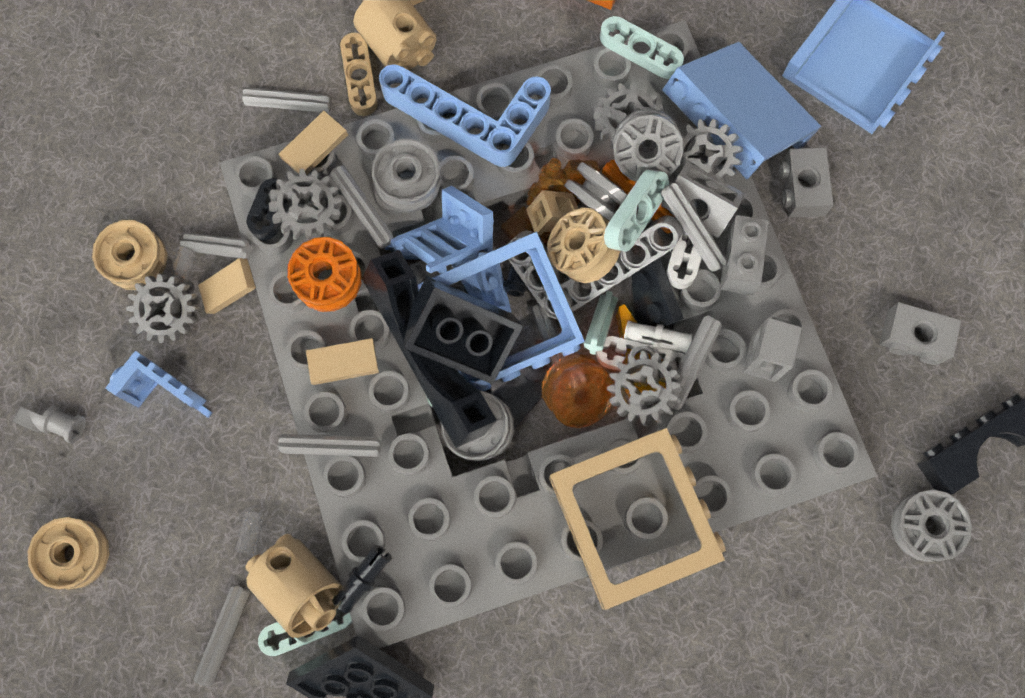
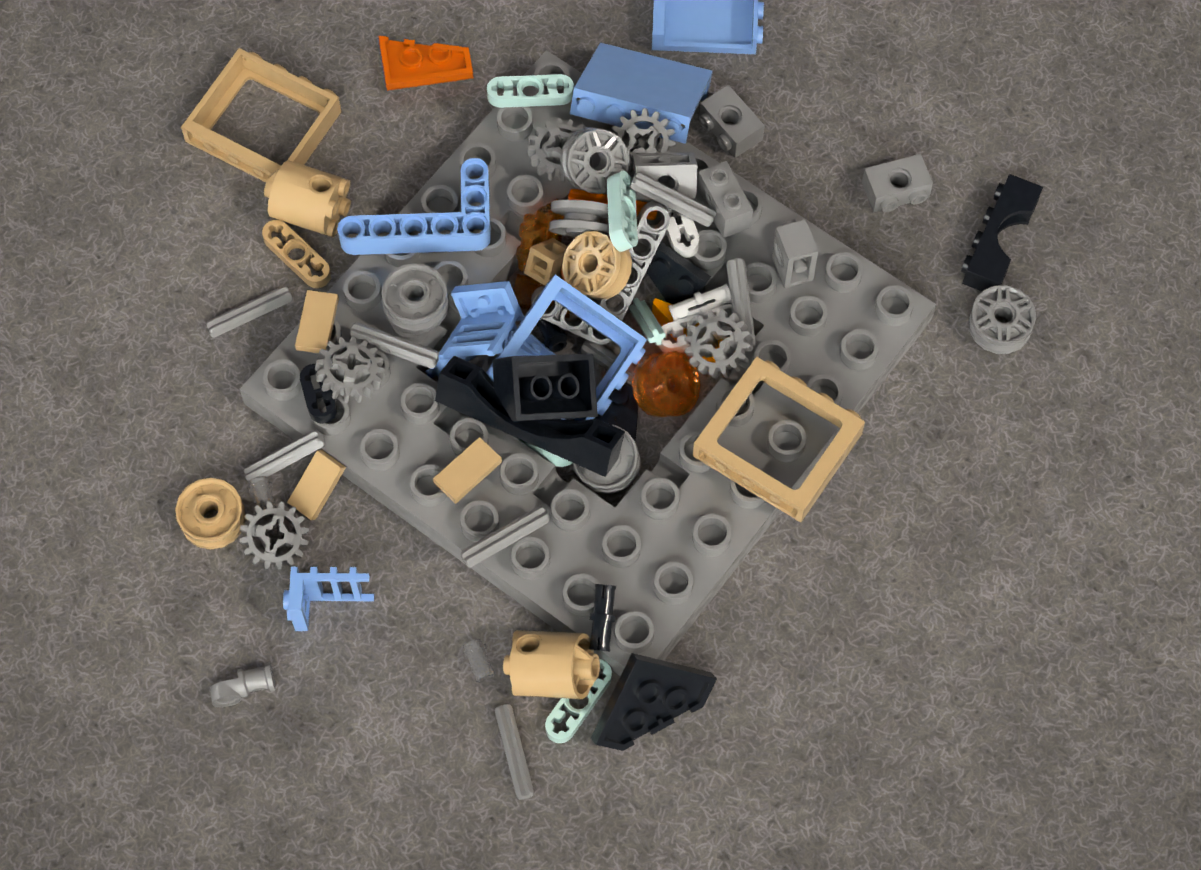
camera: 35 degrees left, 10 degrees down
(48, 550) = (337, 751): tan wheel -> none
(322, 255) = (400, 395): orange wheel -> none

